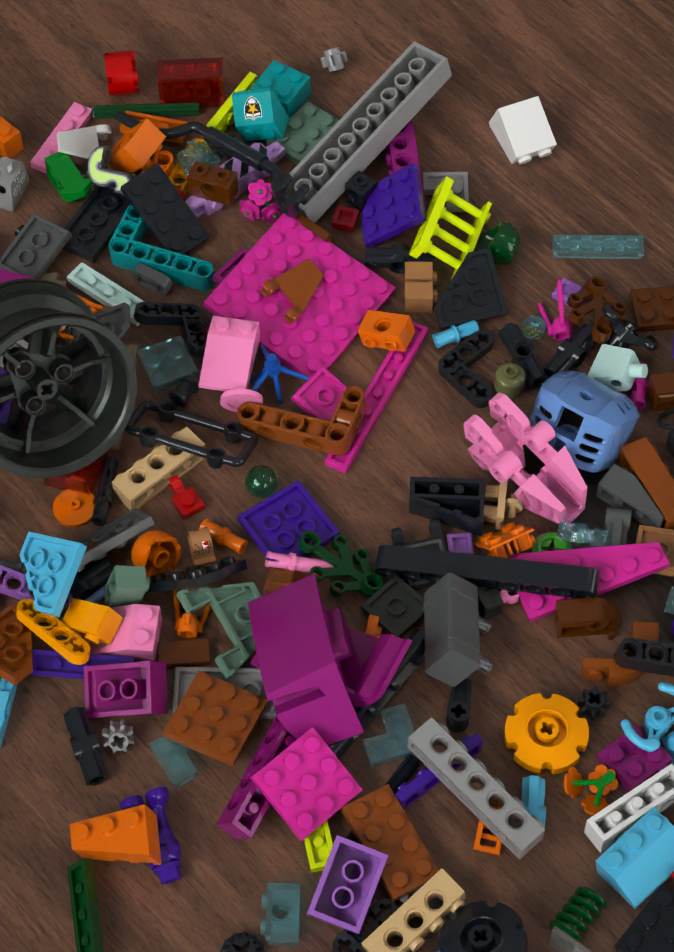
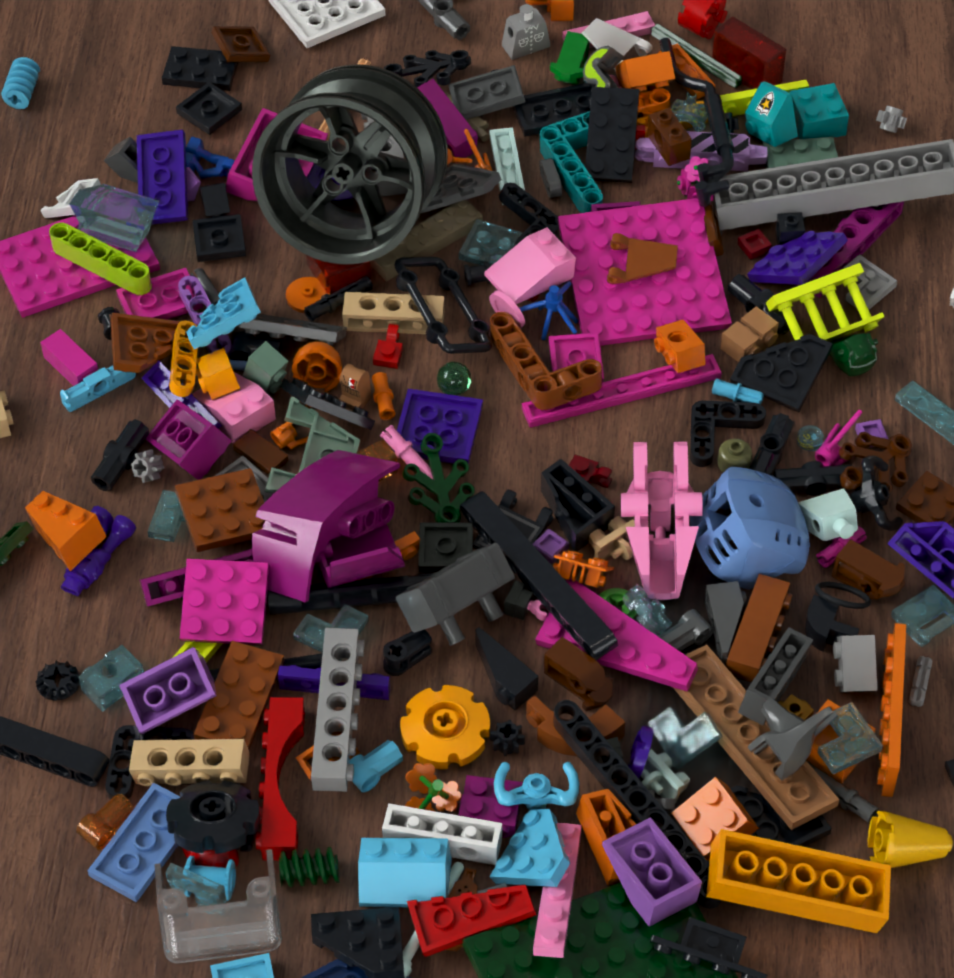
camera: 45 degrees right, 5 degrees down
(422, 469) = (590, 471): none -> dark red plate
(441, 832) = (285, 729): none -> red arch
(538, 659) = (509, 677): none -> black slope

